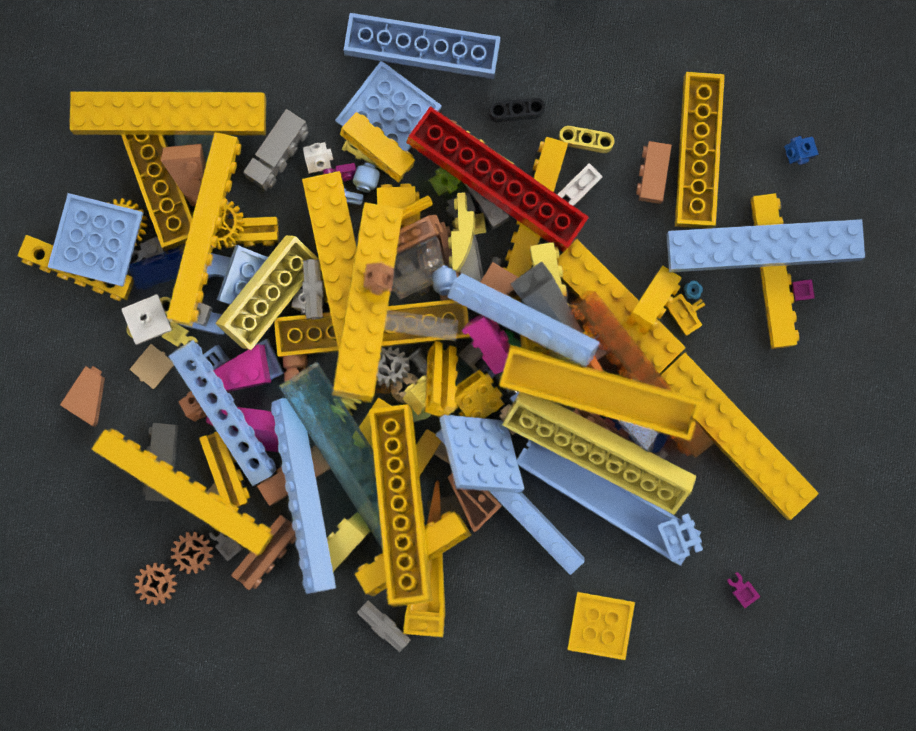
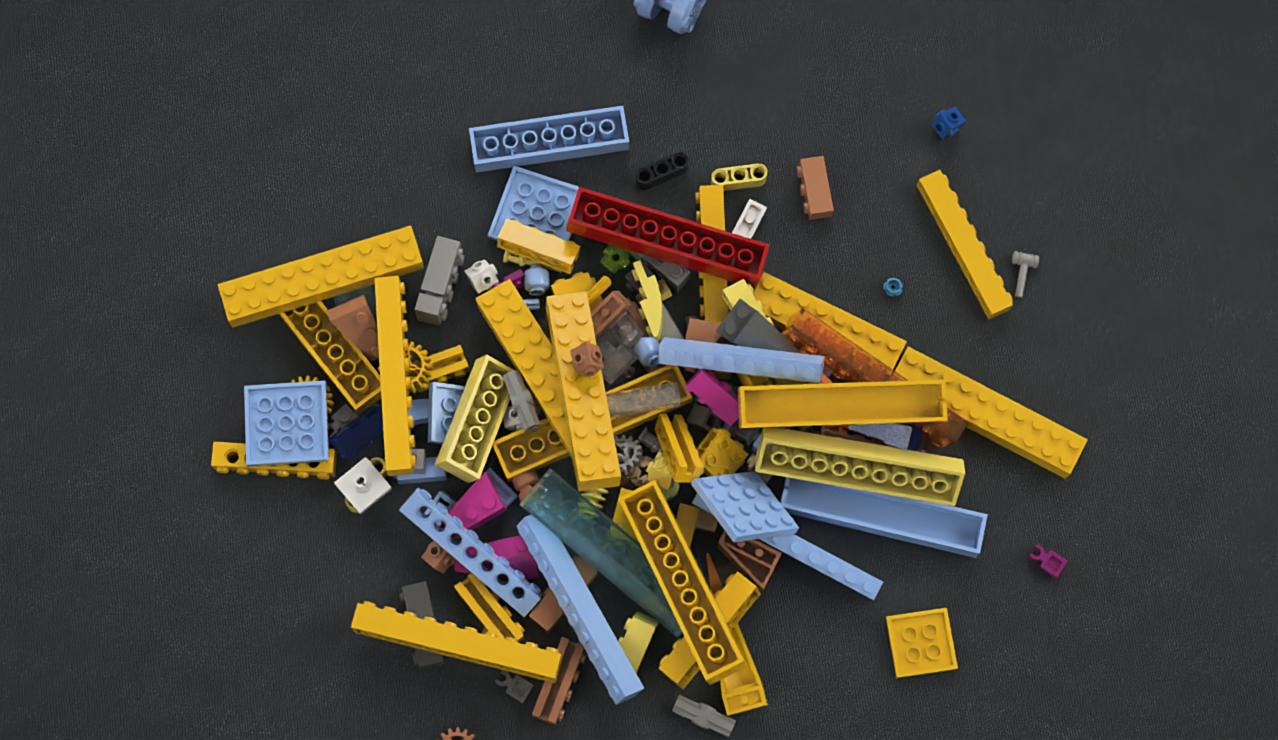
camera: 20 degrees left, 10 degrees down
(86, 395) = (323, 583): nougat slope -> none
(152, 366) = (382, 533): tan piece -> none
(178, 335) = (397, 493): light yellow plate -> none
(193, 561) = (493, 700): nougat gear -> none
(654, 299) = (861, 304): yellow brick -> none
(674, 539) = (964, 529): light blue plate -> none
(685, 313) = (893, 311): yellow plate -> none
(699, 150) = (852, 153): yellow brick -> none
(765, 245) = (948, 220): light blue brick -> none
(803, 290) = (999, 253): magenta plate -> none
(824, 305) = (1024, 260): none -> light grey piece

